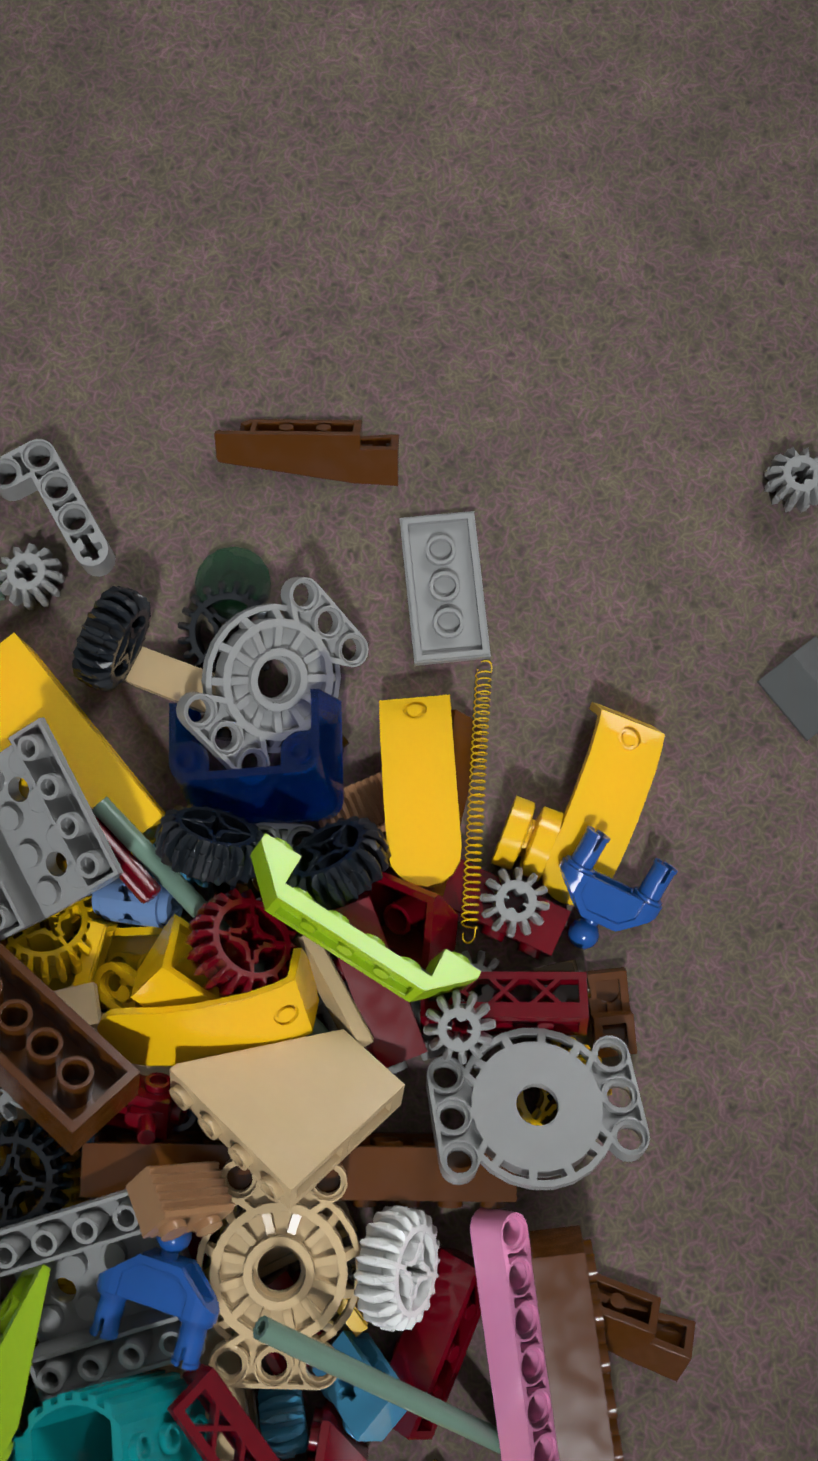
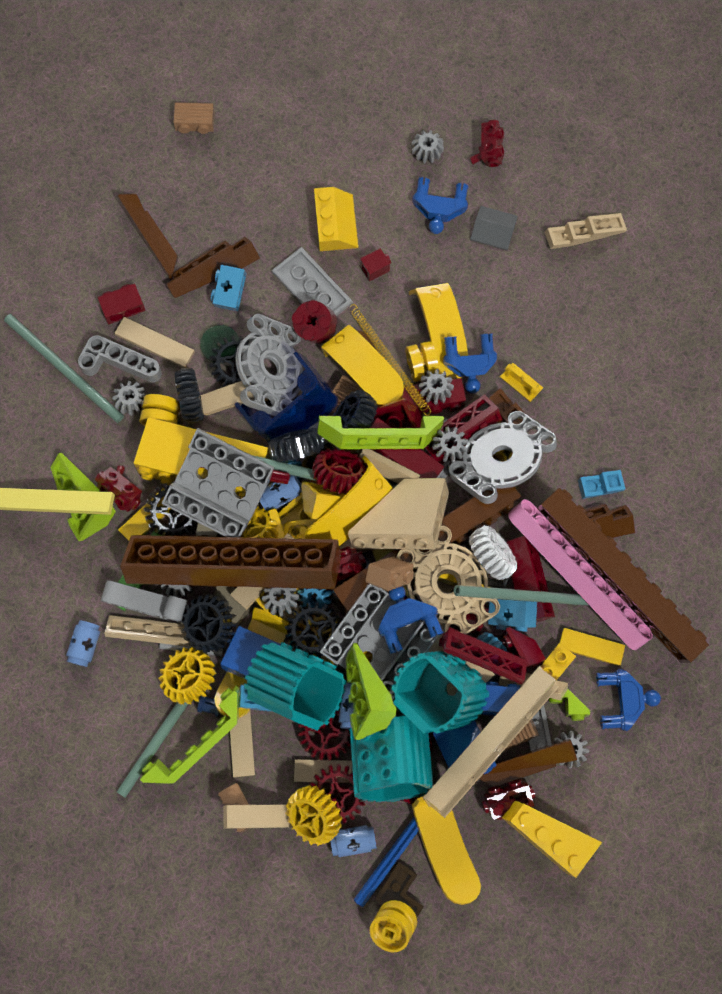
camera: 35 degrees left, 5 degrees down
(50, 633) = (159, 408): none -> yellow wheel
(128, 415) = (121, 303): none -> dark red brick
(136, 513) = (154, 342): none -> tan tile
(253, 330) = (149, 233): none -> reddish brown wedge
(325, 492) = (232, 298): none -> dark azure brick
(398, 671) = (304, 319): none -> dark red brick
(457, 190) = (194, 117): none -> medium nougat brick
(559, 502) = (335, 219): none -> yellow slope
(570, 620) = (375, 264): none -> dark red brick
(669, 983) = (521, 382): none -> yellow hinge
(678, 1257) = (601, 484): none -> dark azure slope
(743, 595) = (439, 208): none -> blue connector

